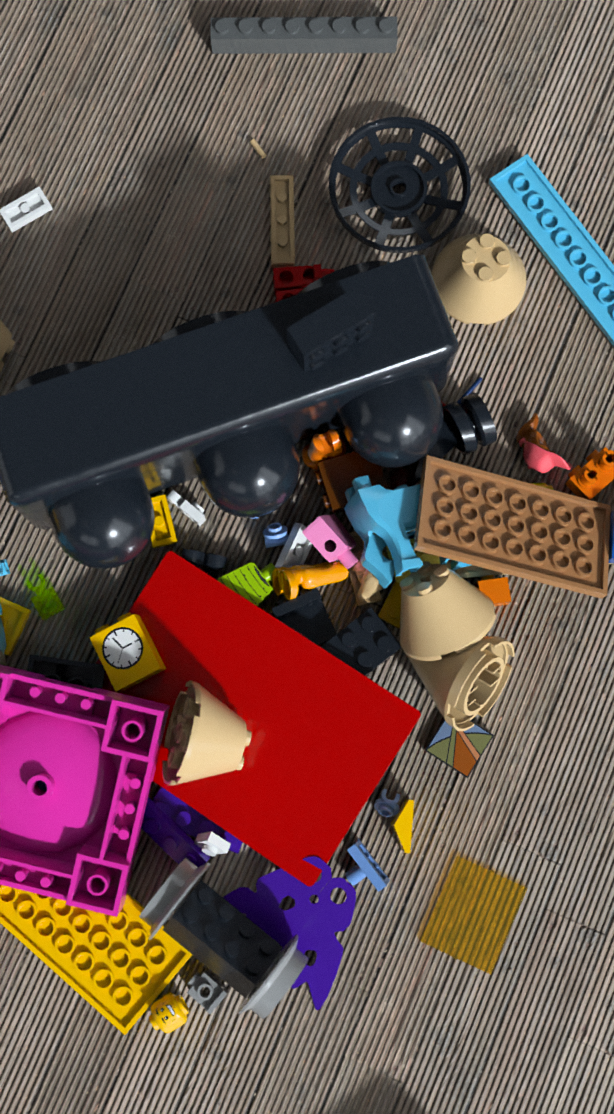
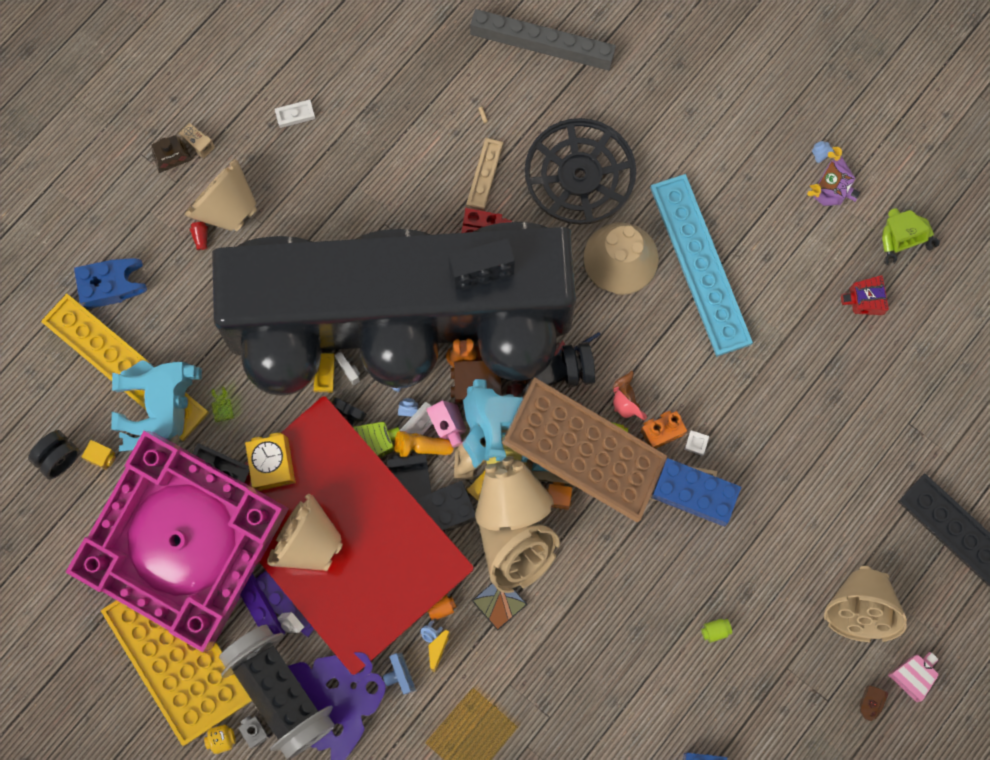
camera: 15 degrees right, 5 degrees down
(395, 771) = (442, 608): none -> orange brick

